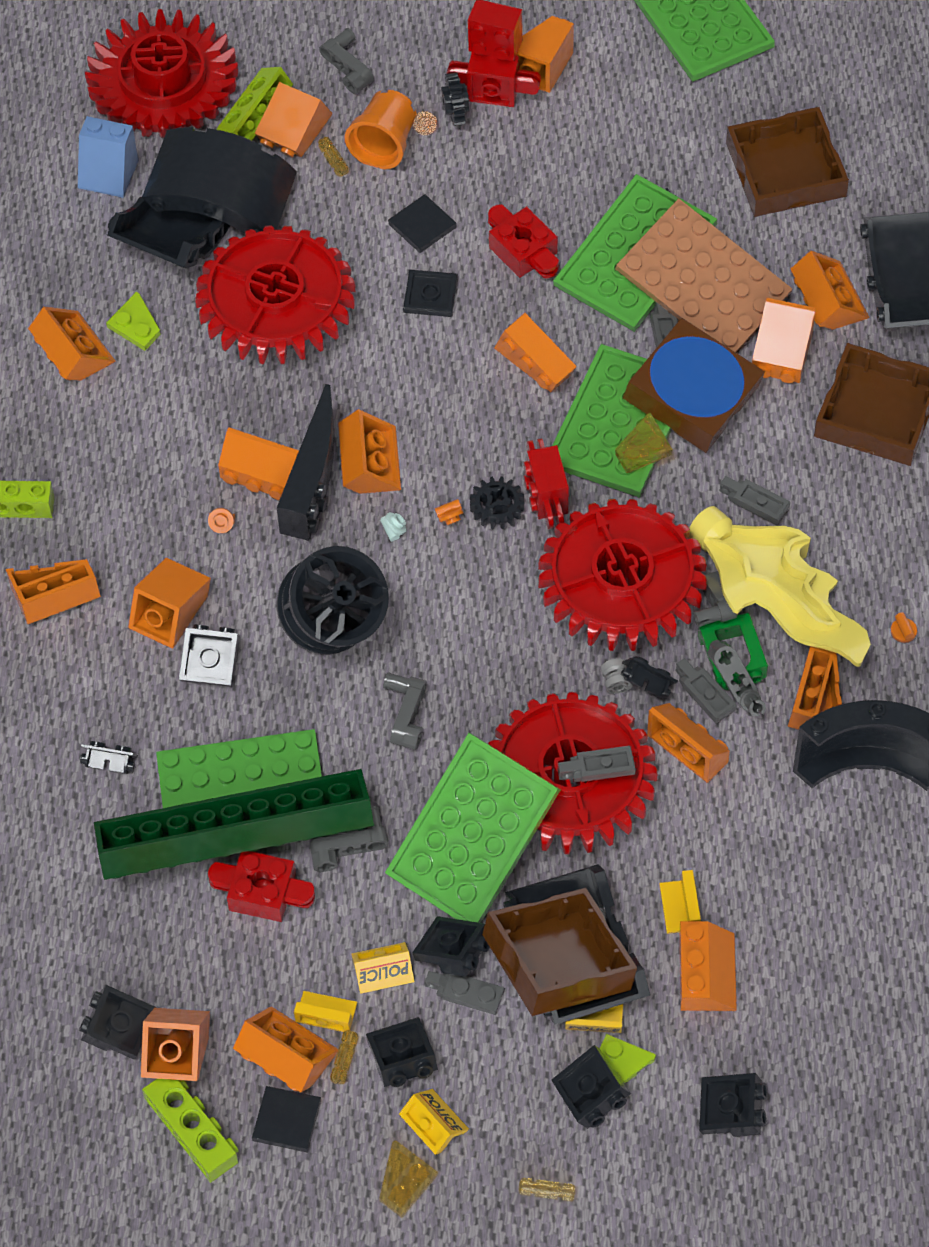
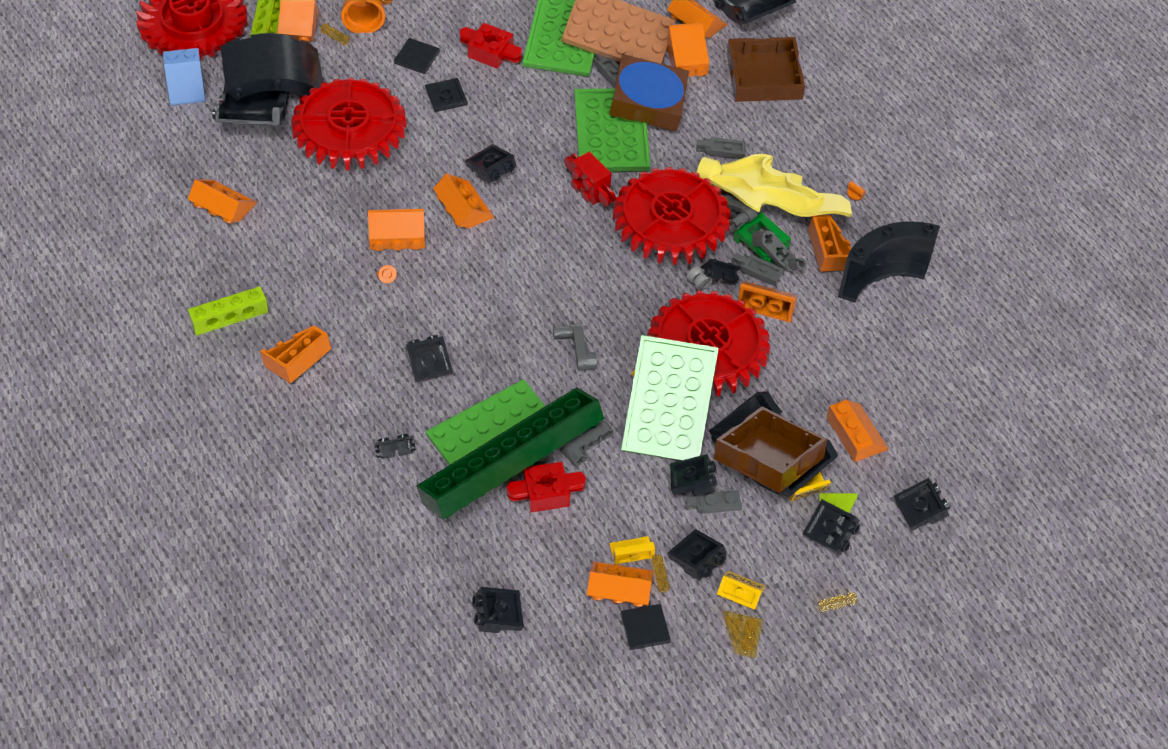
camera: 30 degrees left, 5 degrees down
(135, 323) = (258, 174): lime wing -> none
(167, 601) = (381, 335): orange slope -> none
(174, 1043) = (549, 605): orange slope -> none
(210, 1162) = (591, 665): lime brick -> none
(310, 475) = (437, 231): black slope -> none
(332, 600) = (499, 273): black wheel -> none
(383, 967) = (654, 507): yellow panel -> none
(394, 525) = (503, 239): light aqua plate -> none
(434, 413) = (491, 163): none -> black plate
(449, 512) = (536, 218): orange plate -> none
(497, 503) = (554, 202): black gear -> none
(535, 353) = (537, 107): orange wedge -> none
(598, 765) = (730, 327): dark grey hinge -> none
(643, 445) = (637, 138): clear yellow wing -> none
(679, 901) = (818, 396): yellow panel -> none

